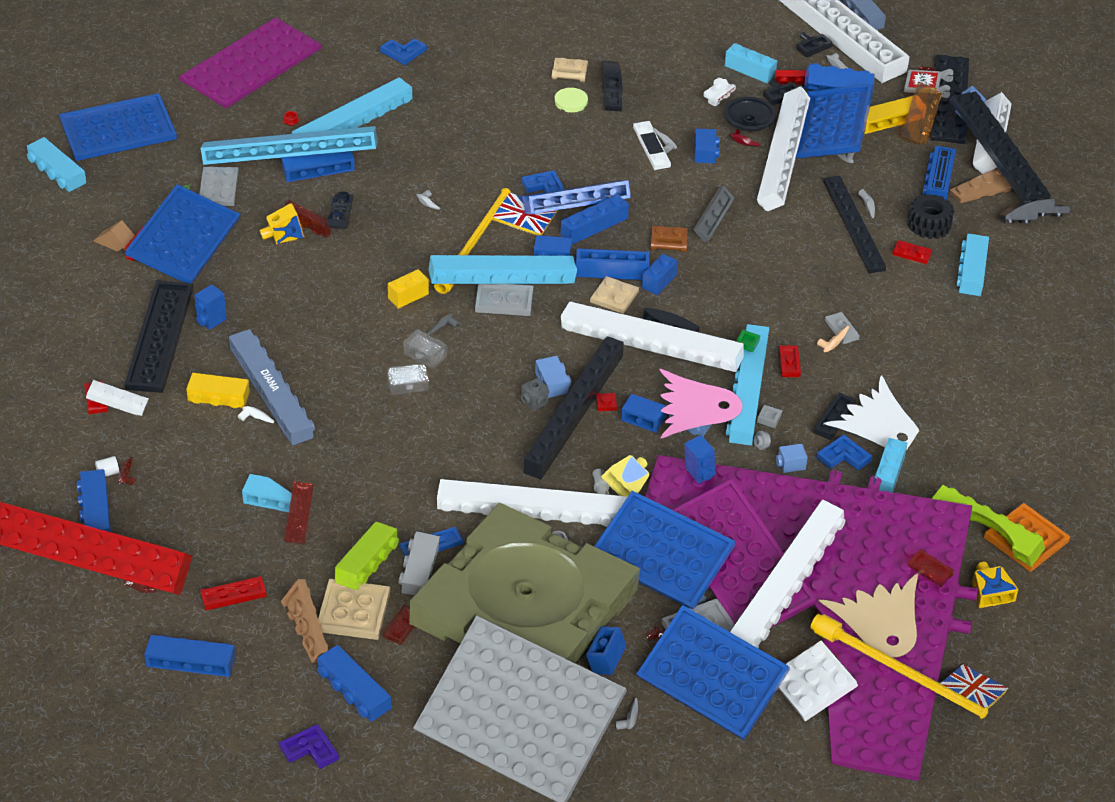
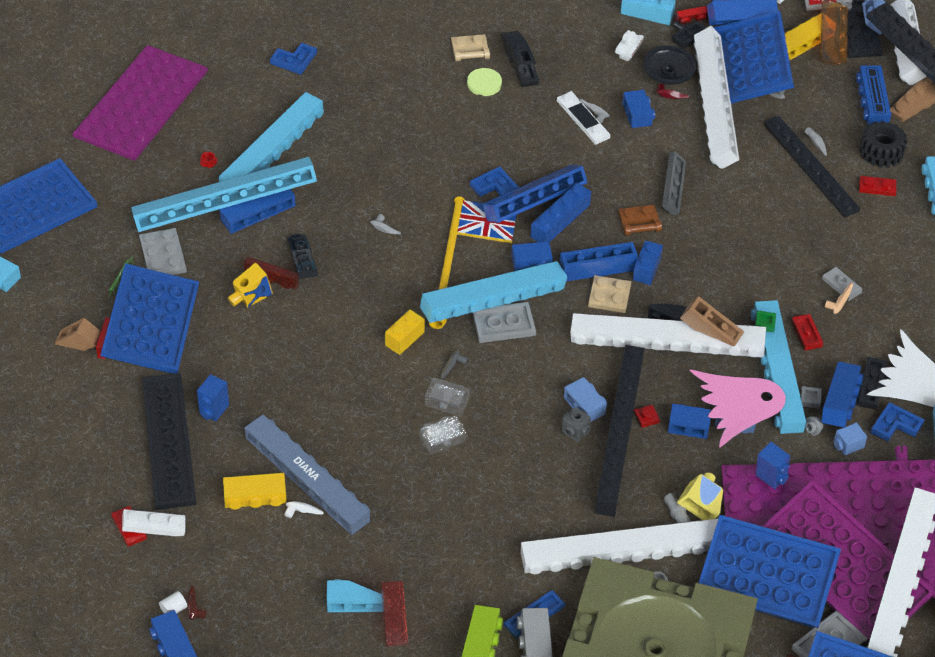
camera: 15 degrees left, 5 degrees up
(690, 328) = (711, 322): none -> medium nougat slope
(797, 417) = (842, 394): none -> blue brick

